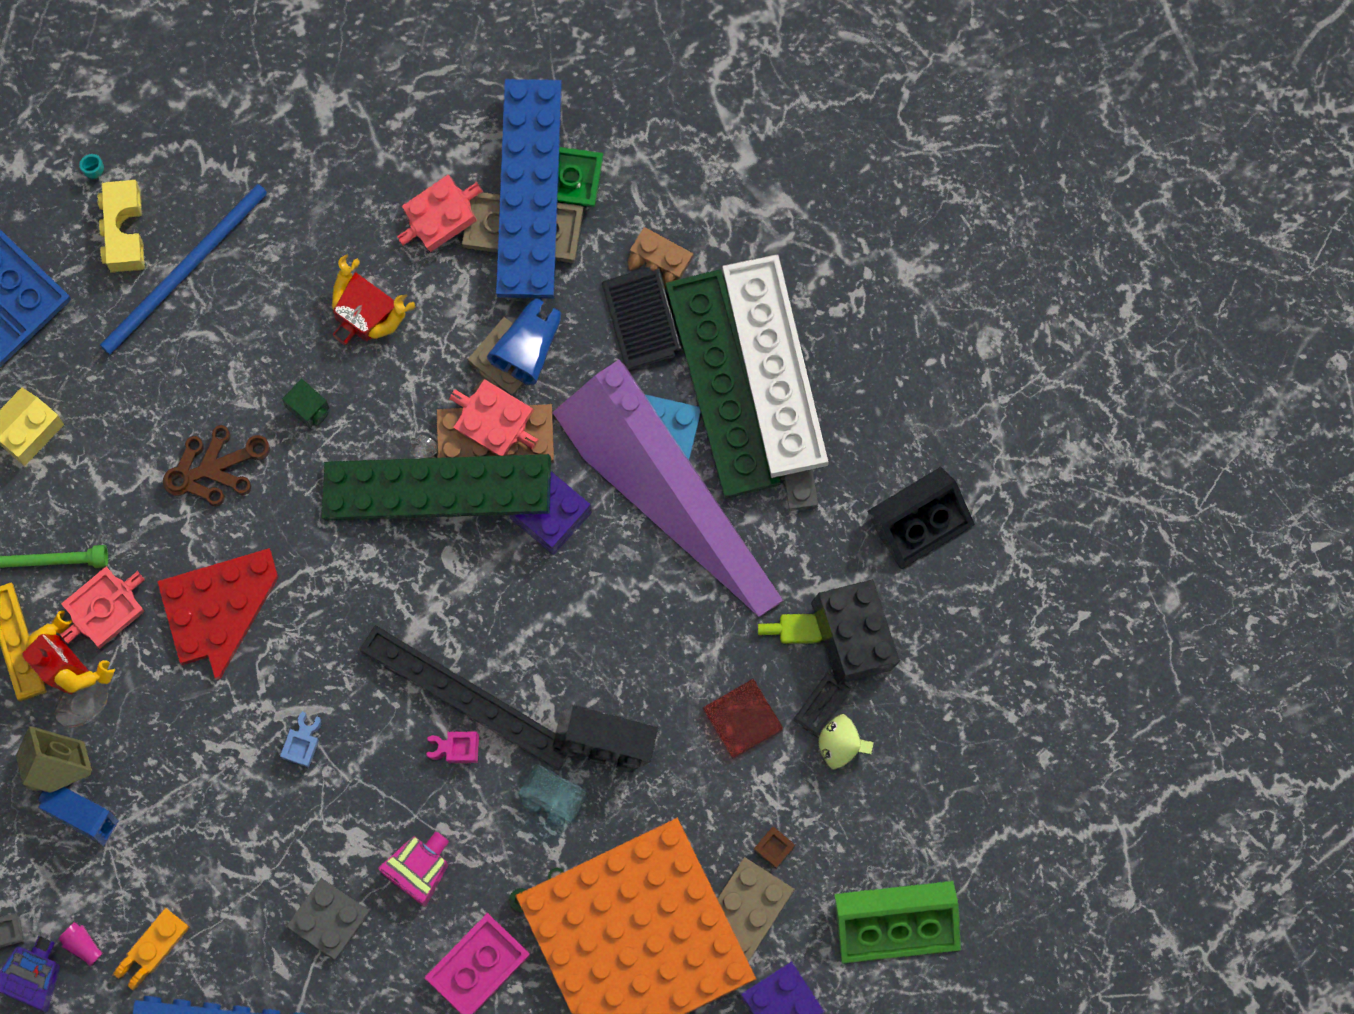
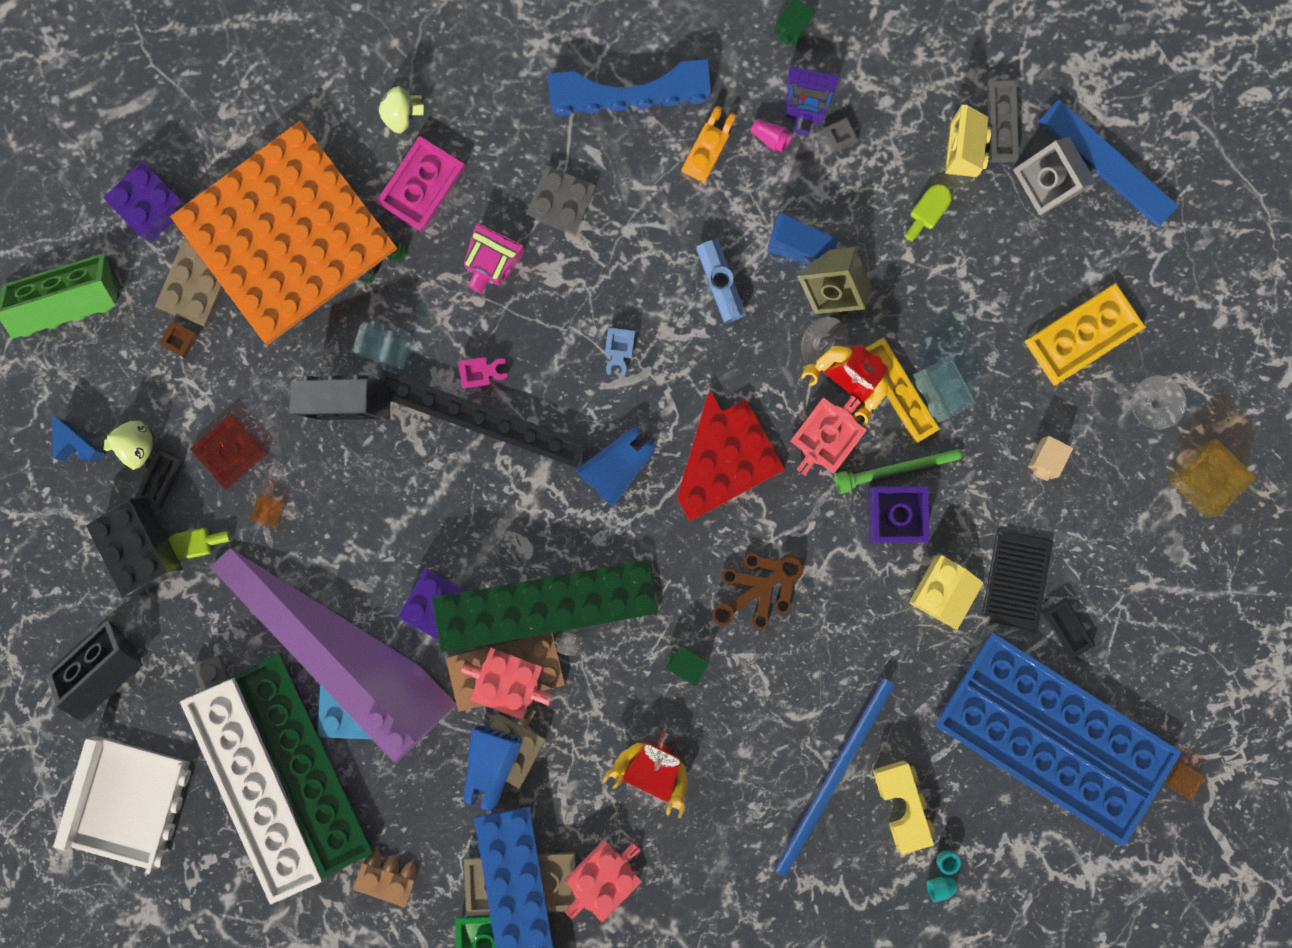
camera: 170 degrees right, 10 degrees up
(51, 508) = (898, 515): none -> dark purple brick
(105, 143) = (941, 888): none -> teal hose
(173, 774) = (716, 265): none -> medium blue piece
(331, 619) = (616, 466): none -> blue piece
(642, 317) = (390, 815): black window -> none
(712, 647) = (267, 511): none -> clear orange tile
(908, 764) = (69, 439): none -> blue slope
(910, 380) = (123, 803): none -> white panel

